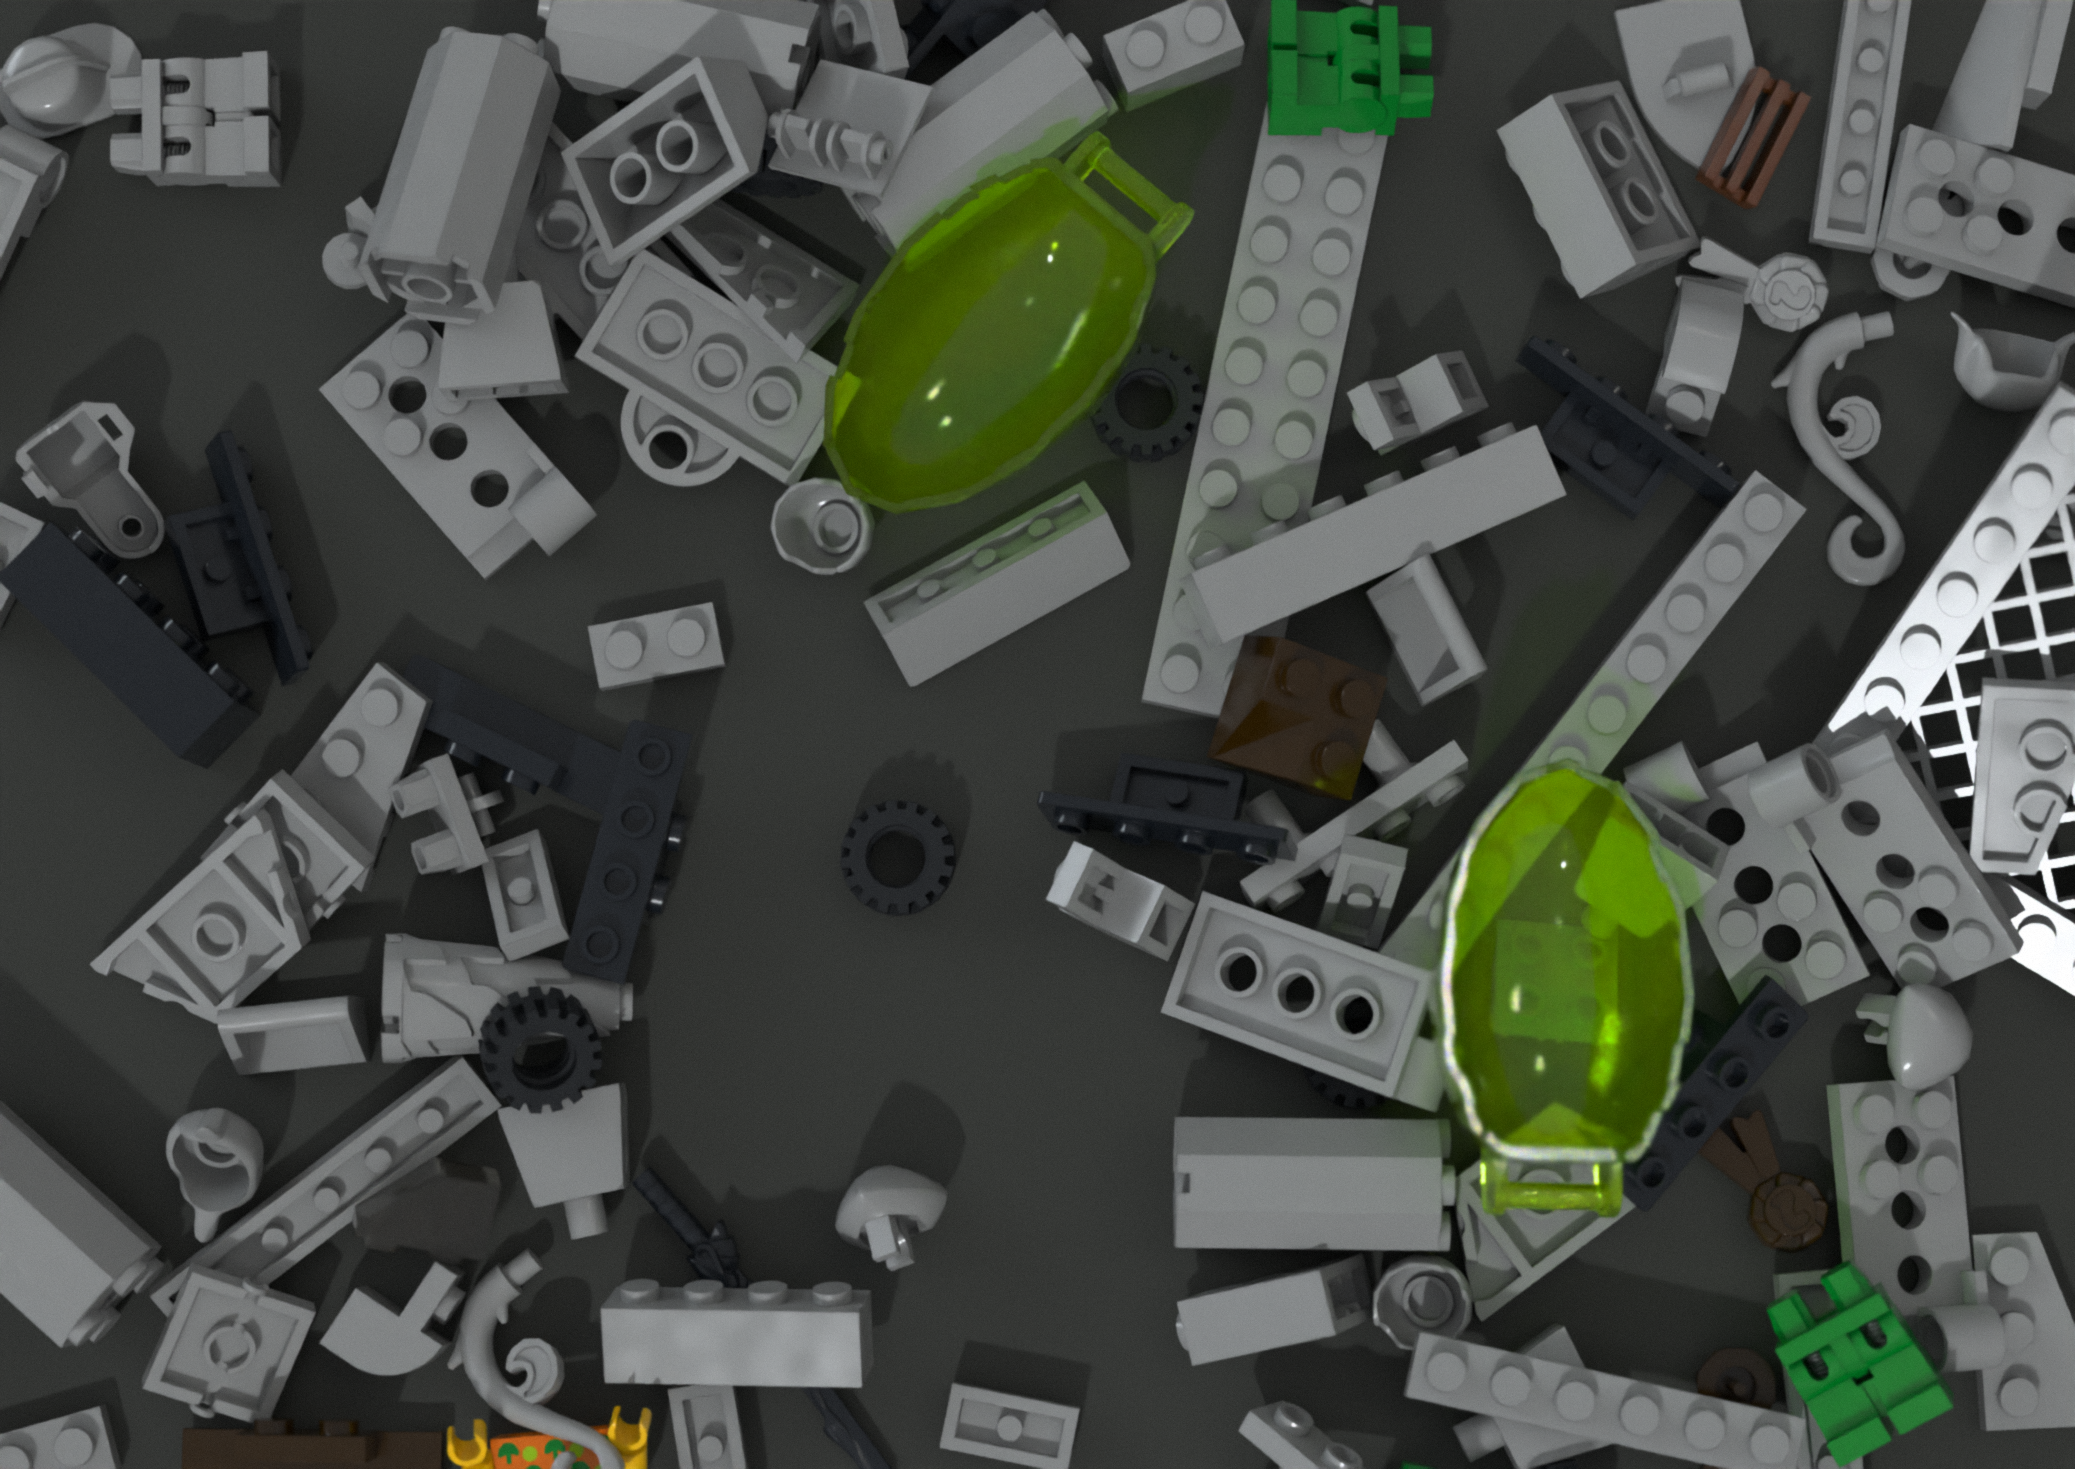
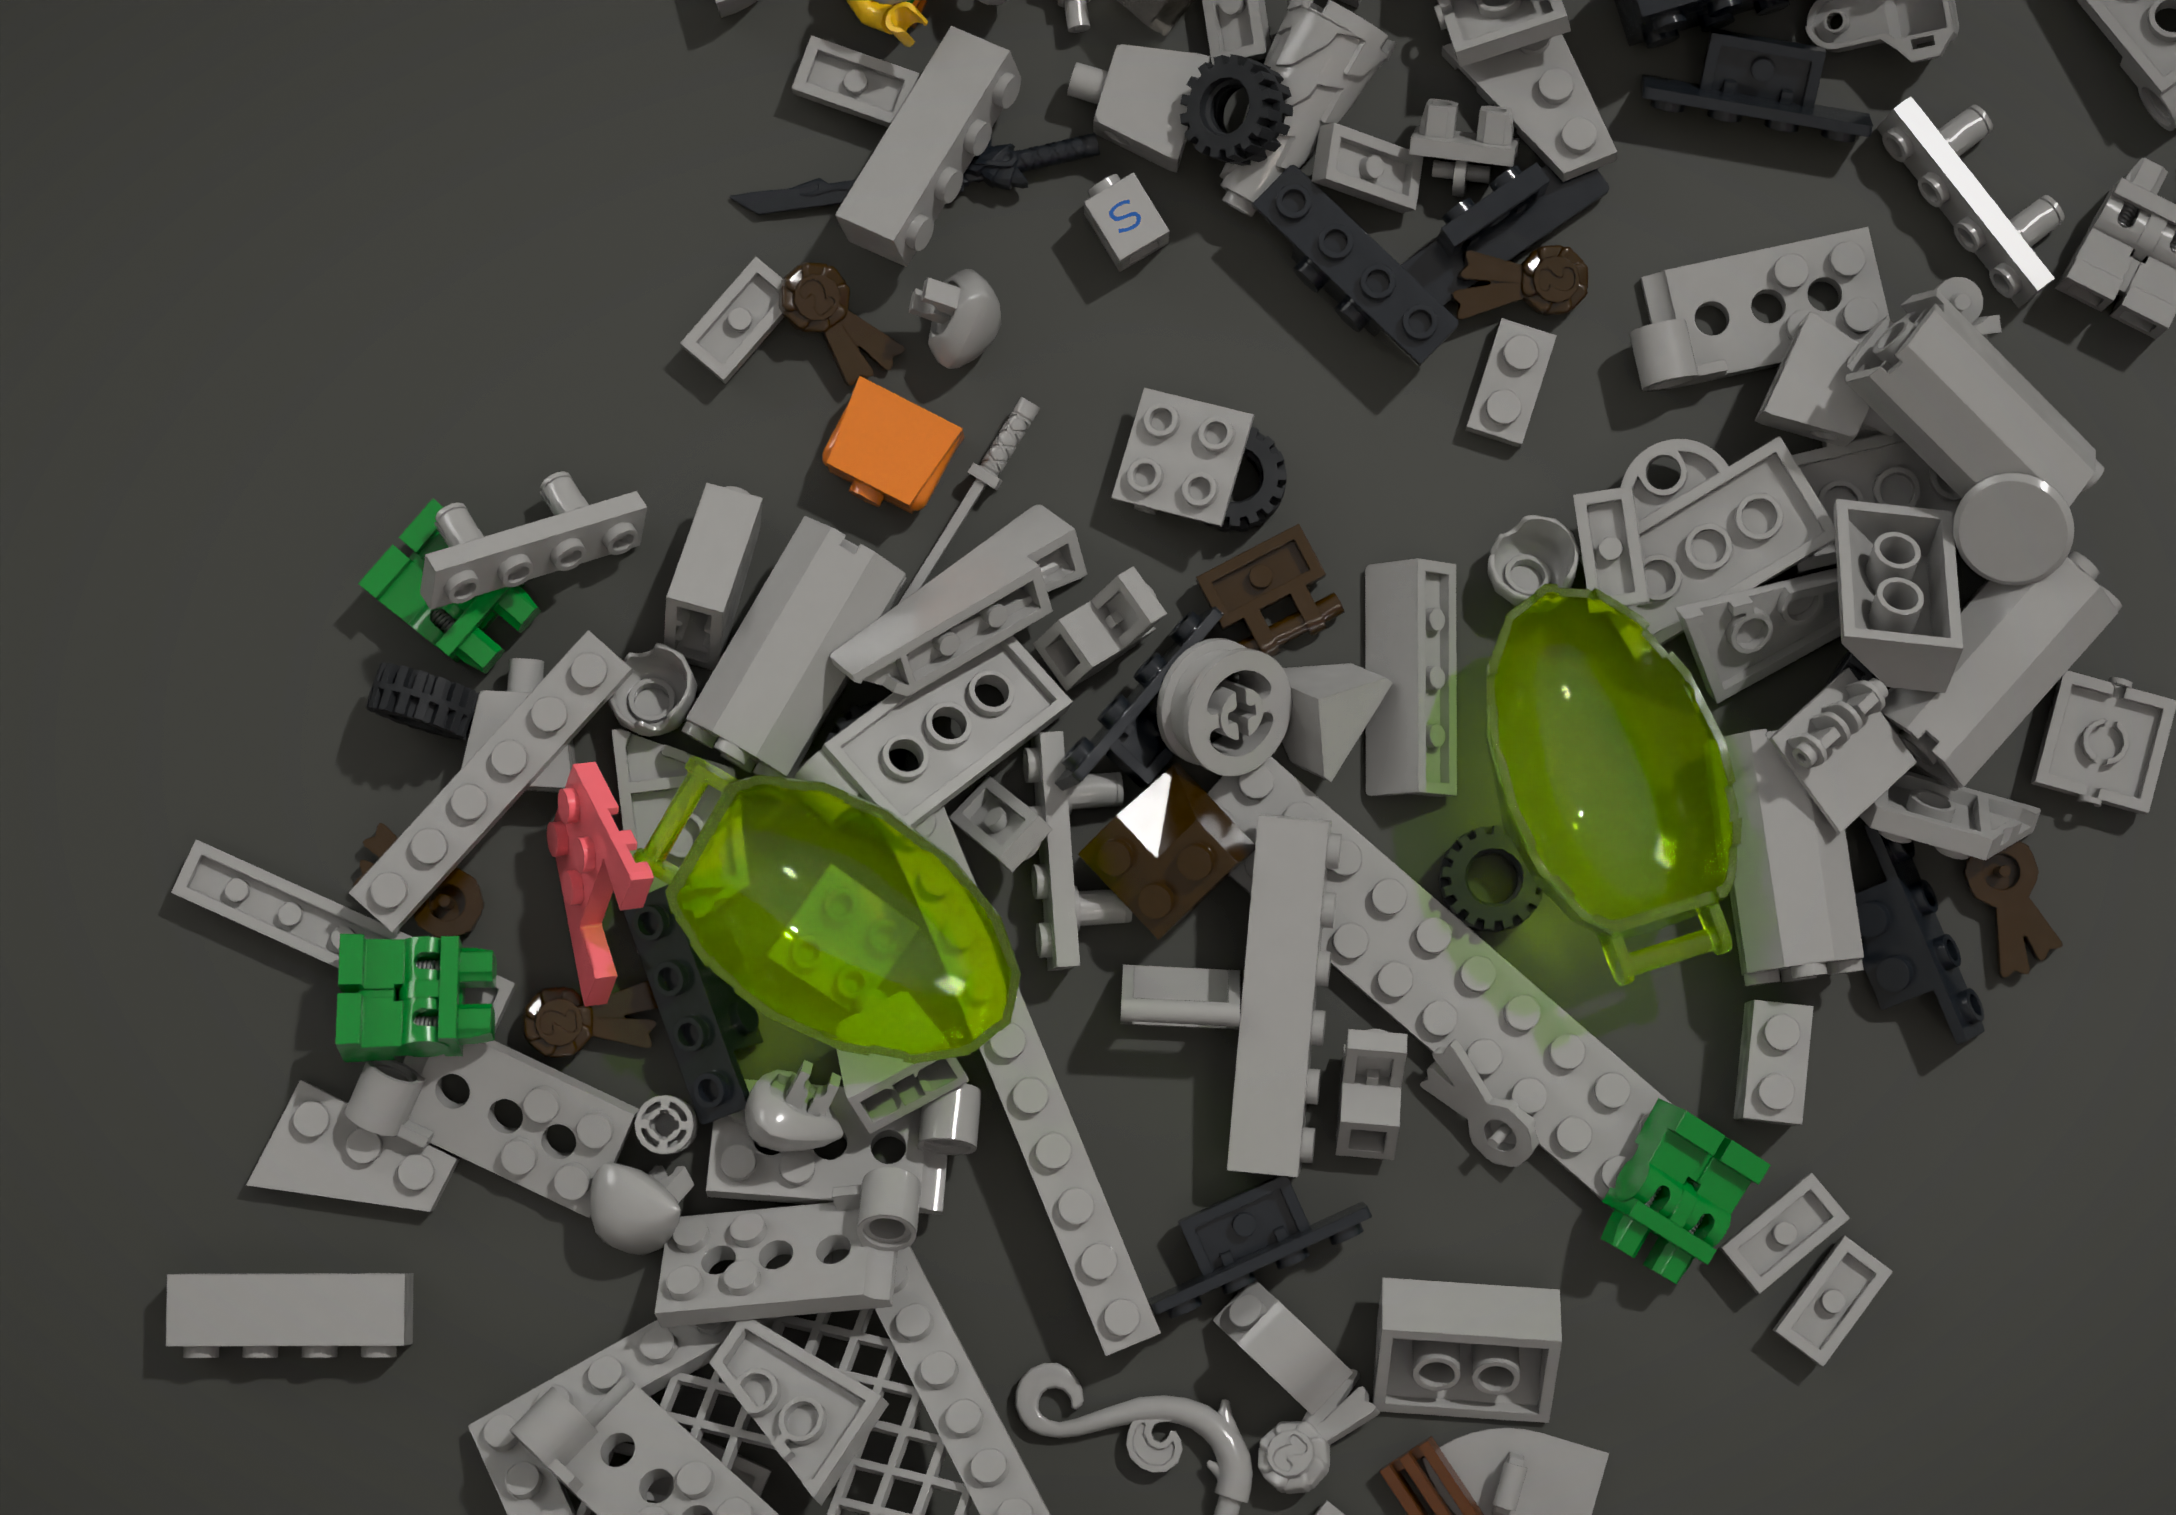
camera: 120 degrees right, 0 degrees up
(236, 331) = (1976, 218): none -> light grey plate
(538, 664) = (1548, 281): none -> dark brown piece
(550, 78) = (2013, 529): none -> light grey piece
(702, 1105) = (1125, 220): none -> light grey brick
(769, 457) = (1612, 545): none -> light grey plate
(907, 915) = (1182, 457): none -> light grey hinge
(950, 1360) = (817, 301): none -> dark brown piece
(981, 777) = (1264, 577): none -> dark brown plate
(1027, 1100) = (985, 474): none -> light grey sword
(1055, 1207) = (890, 448): none -> orange torso
(1076, 651) = (1329, 714): none -> light grey slope
(1130, 739) = (1201, 700): none -> light grey wheel
(1172, 1042) = (967, 606): none -> light grey wedge
(1378, 274) = (1495, 1125): none -> light grey piece
(1637, 1254) = (592, 864): none -> coral wing
(1754, 931) = (790, 1114): none -> light grey piece
(1814, 1056) = (676, 1125): none -> light grey wheel

